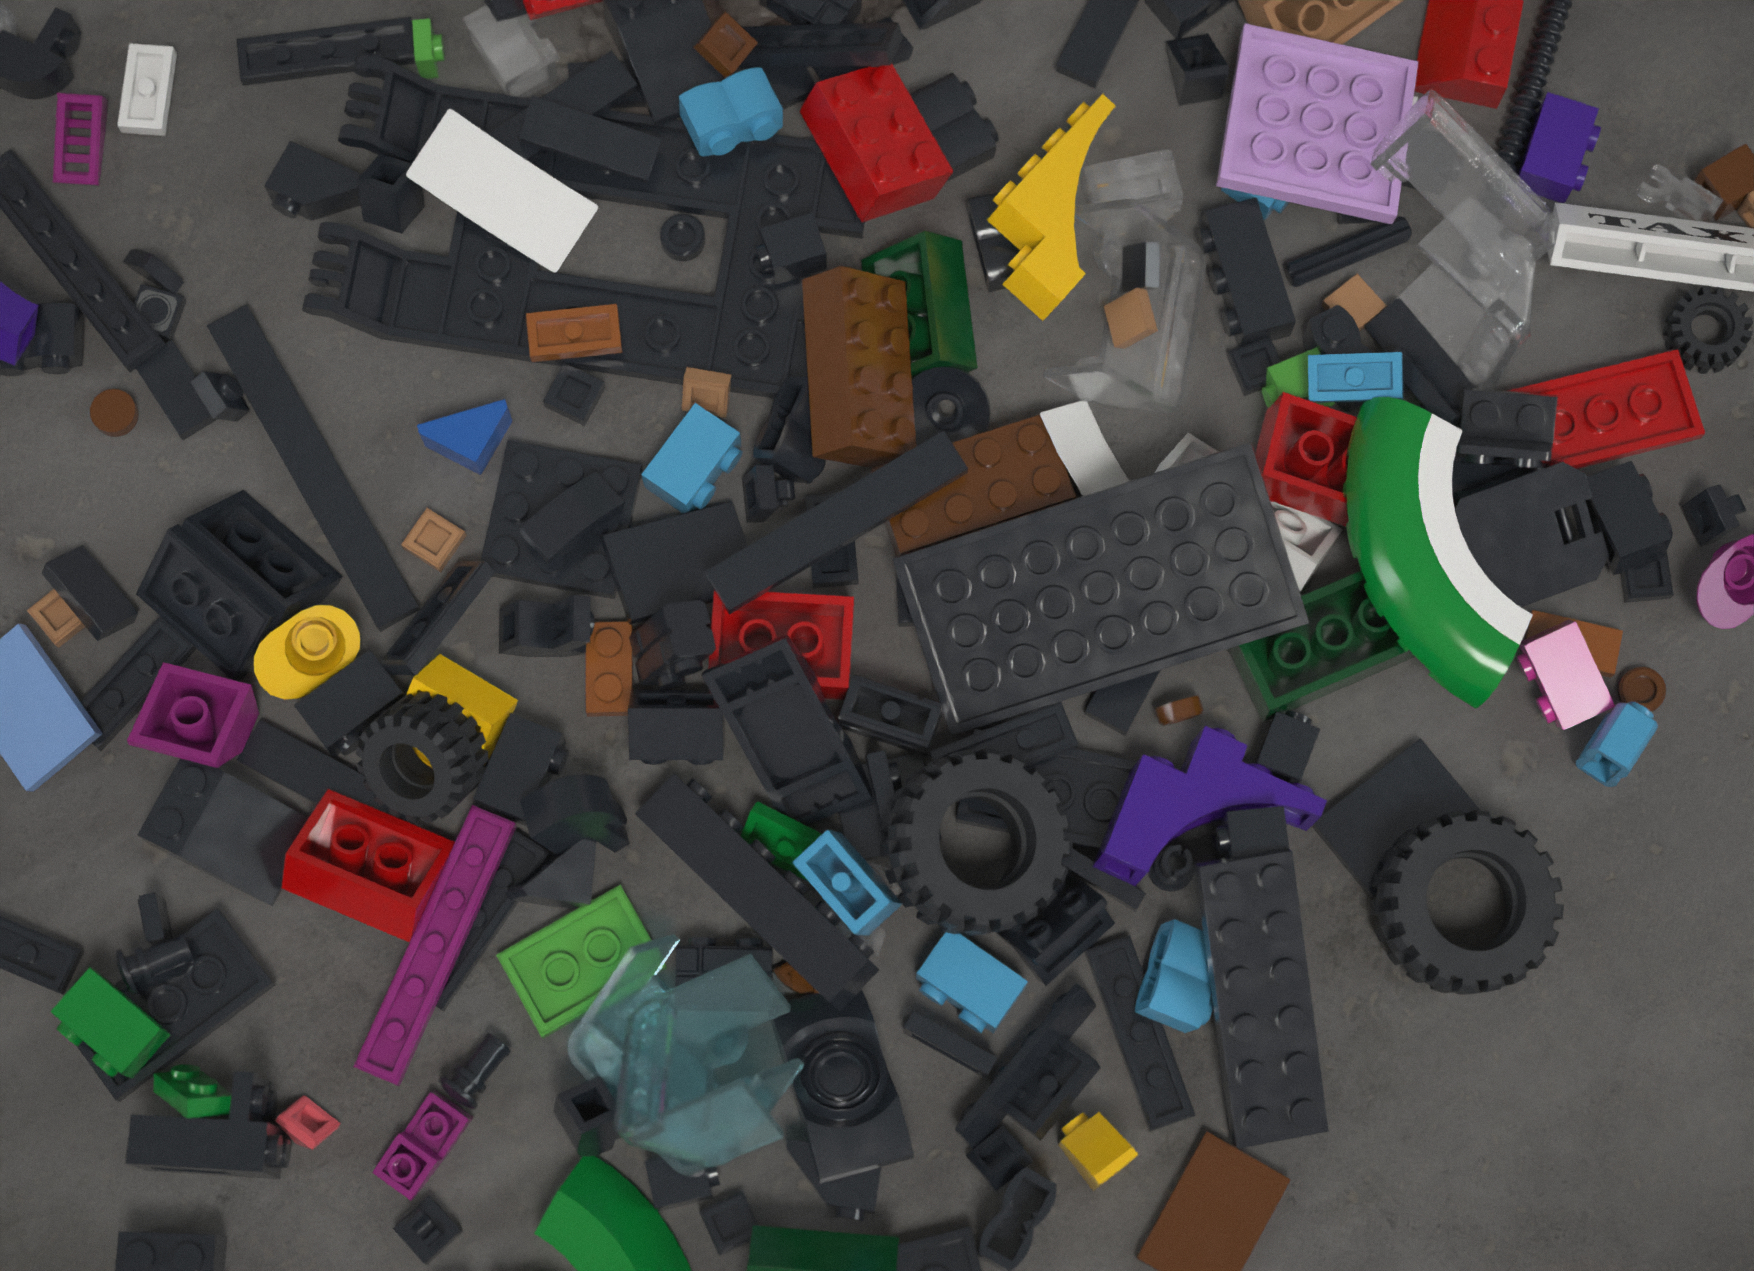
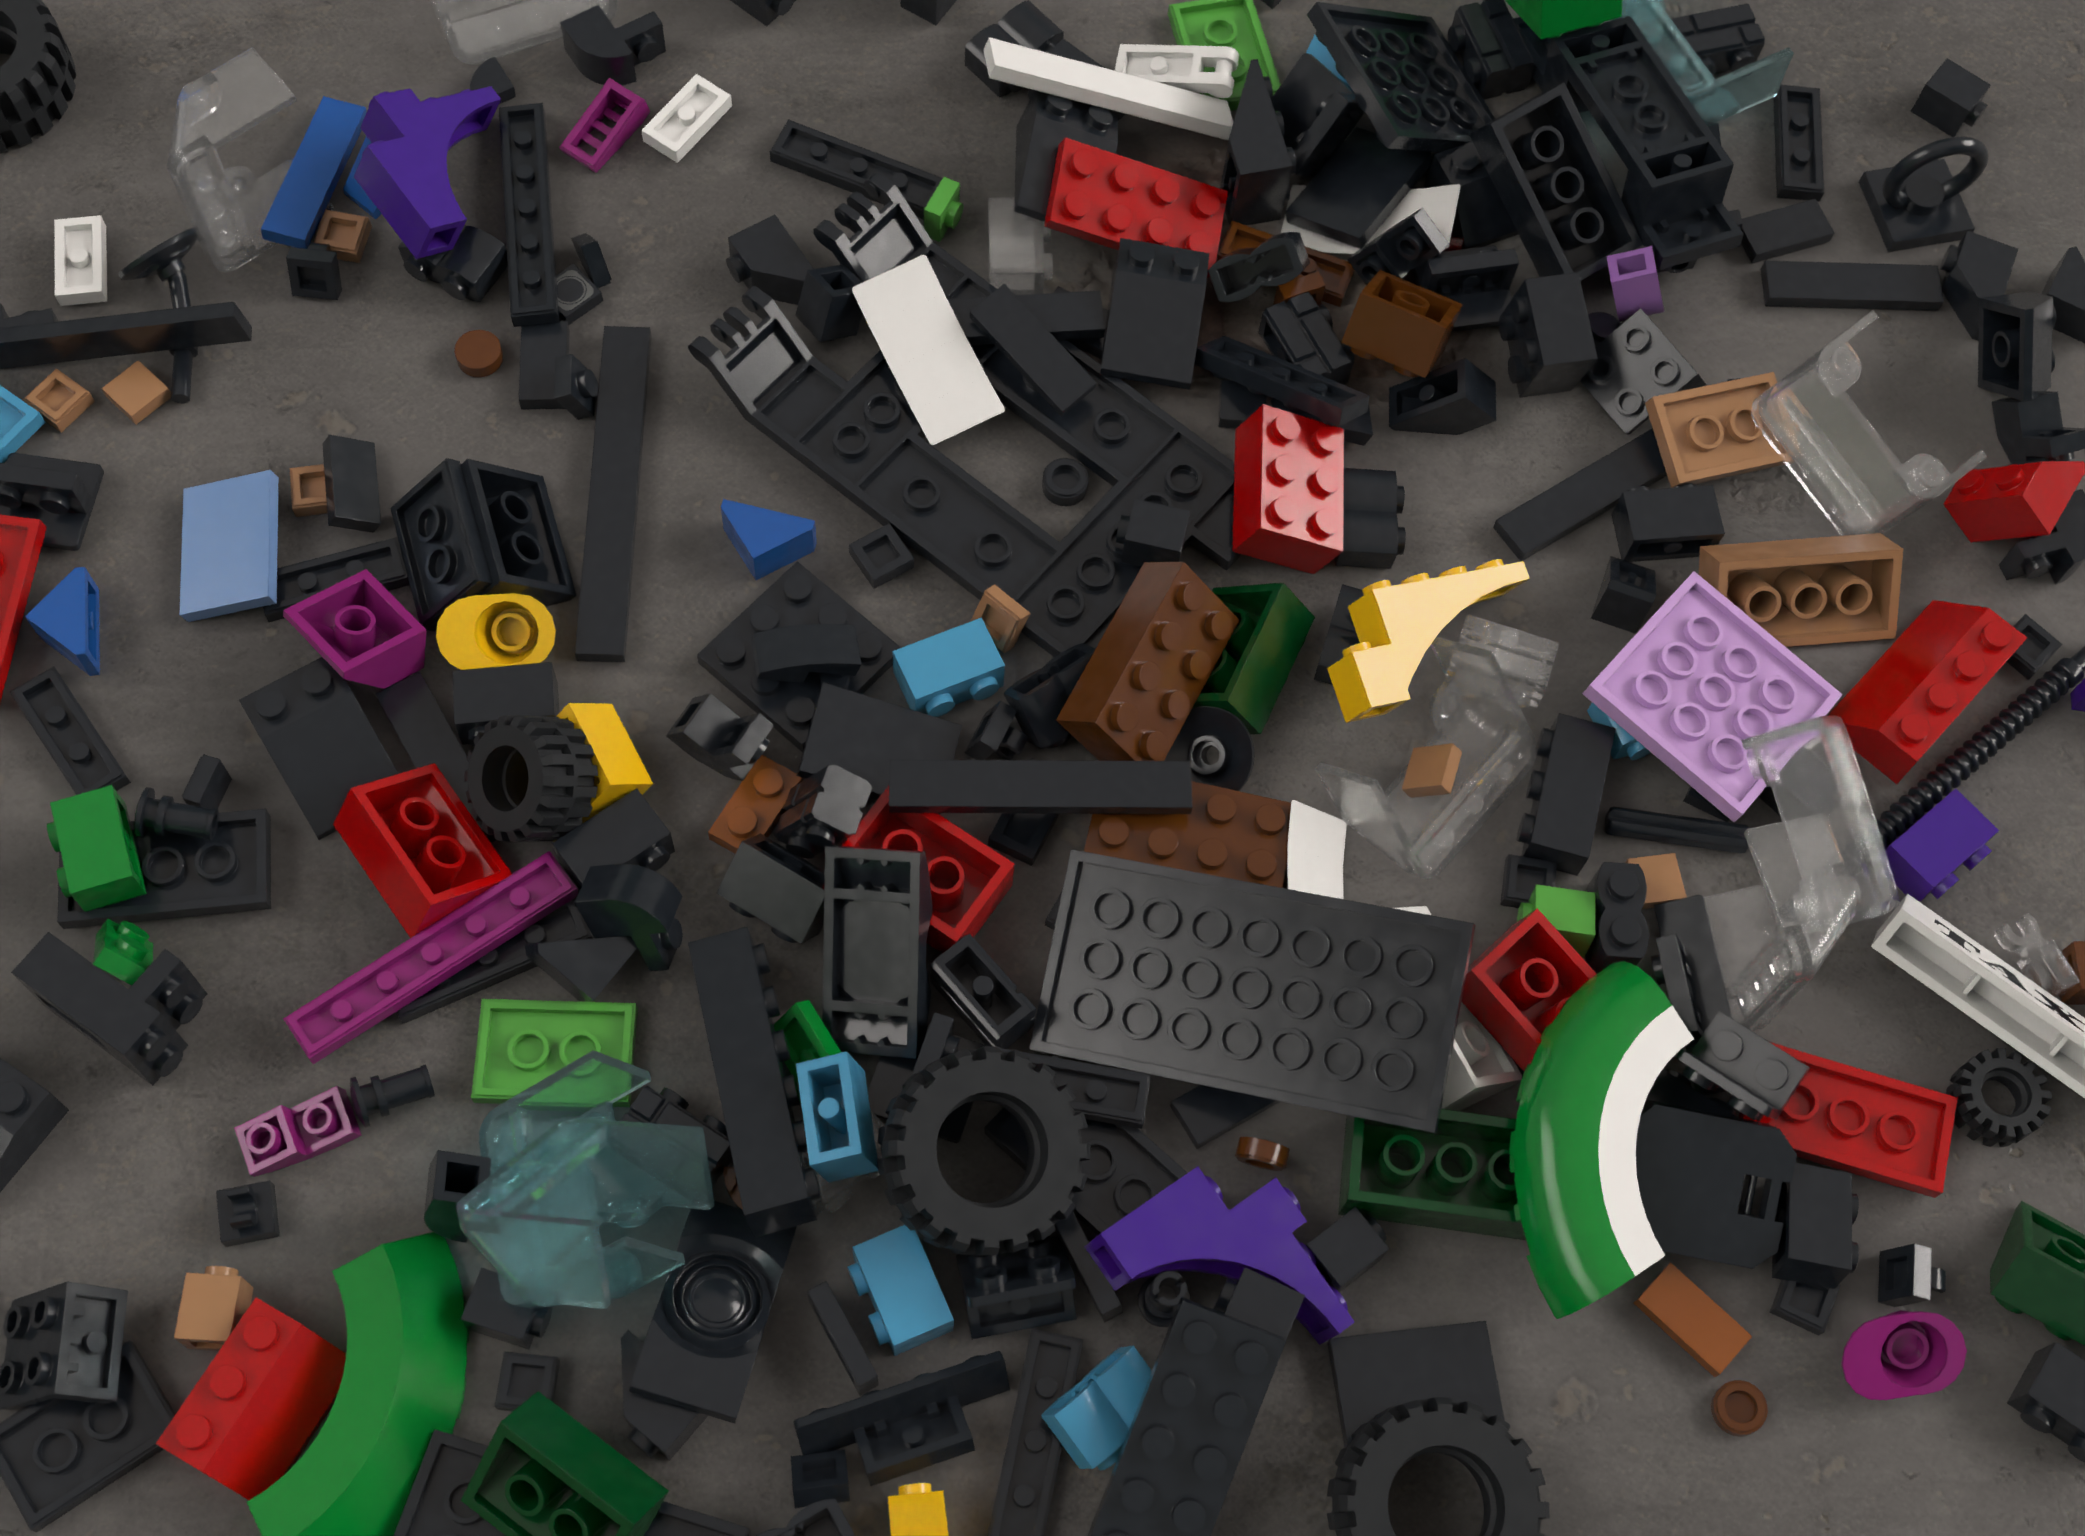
camera: 25 degrees right, 10 degrees down
(307, 1123) = (209, 1046): coral slope -> none
(433, 540) = (676, 609): medium nougat tile -> none
(437, 617) = (629, 669): black tile -> none
(574, 333) = (913, 500): dark orange plate -> none
(725, 44) = (1202, 335): reddish brown plate -> none
(731, 112) = (1173, 394): dark azure brick -> none
(1141, 266) = (1470, 728): black tile -> none
(1355, 376) = (1615, 933): dark azure plate -> none
(1565, 675) = (1667, 1343): brick -> none
(1617, 743) = (1684, 1440): dark azure brick -> none

